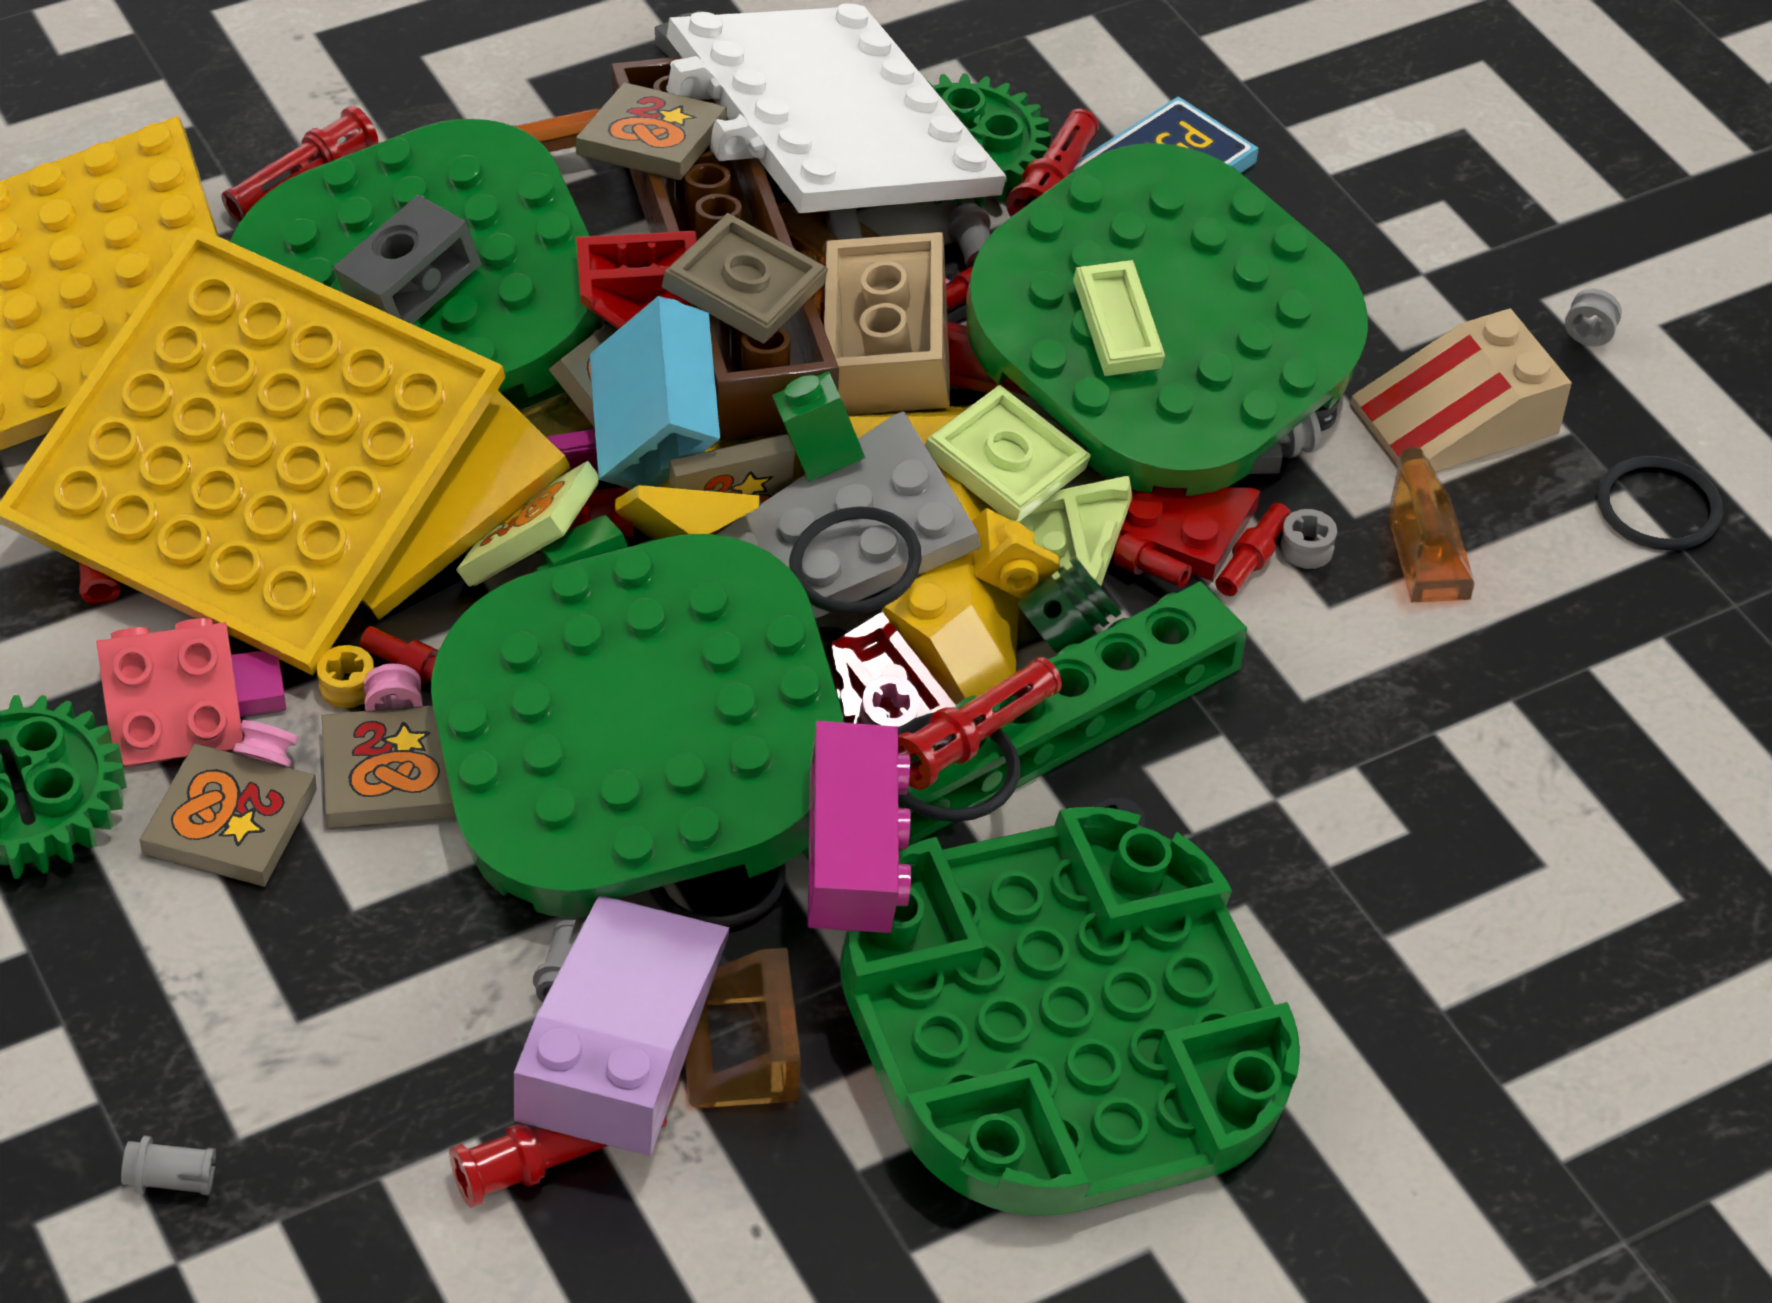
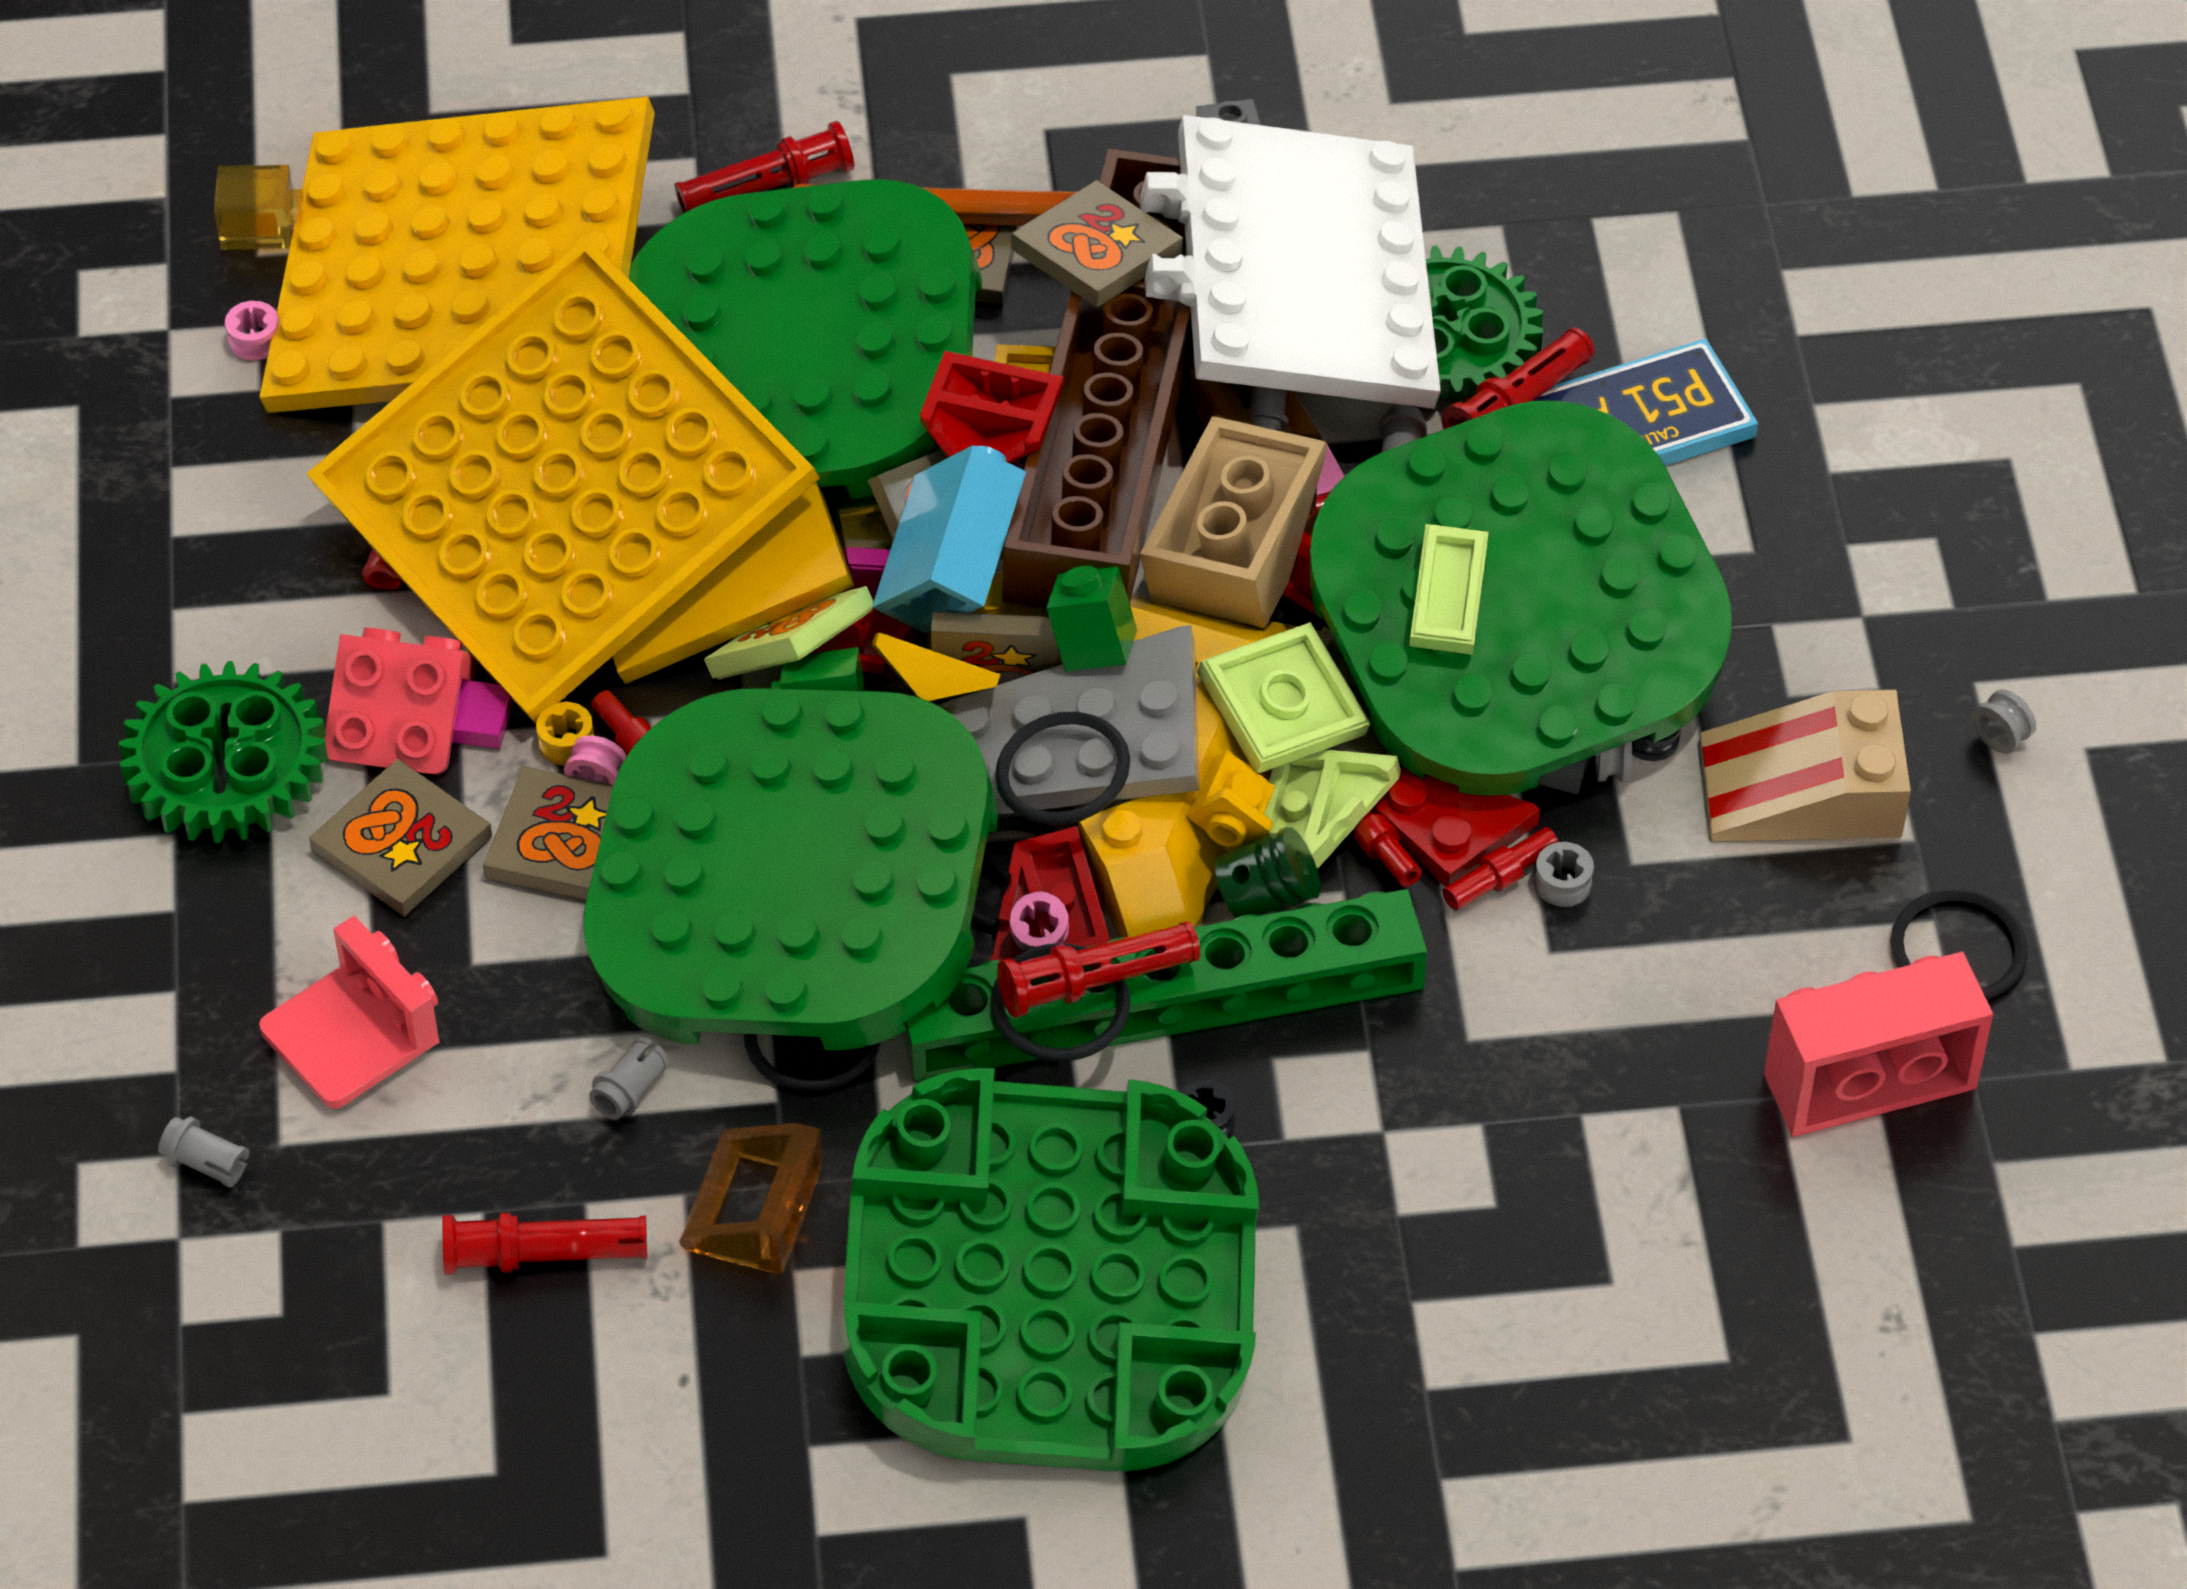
camera: 25 degrees right, 5 degrees up
(265, 743) = (457, 780): bright pink bush -> none
(269, 990) = (355, 1020): none -> coral bracket
(409, 261) = (776, 332): dark grey brick -> none
(618, 1025) = (635, 1149): lavender slope -> none
(745, 278) = (1085, 442): dark tan tile -> none
(857, 827) = (910, 1036): dark pink brick -> none
(1427, 533) = (1685, 906): clear orange tile -> none
(1665, 589) = (1877, 1043): none -> coral brick

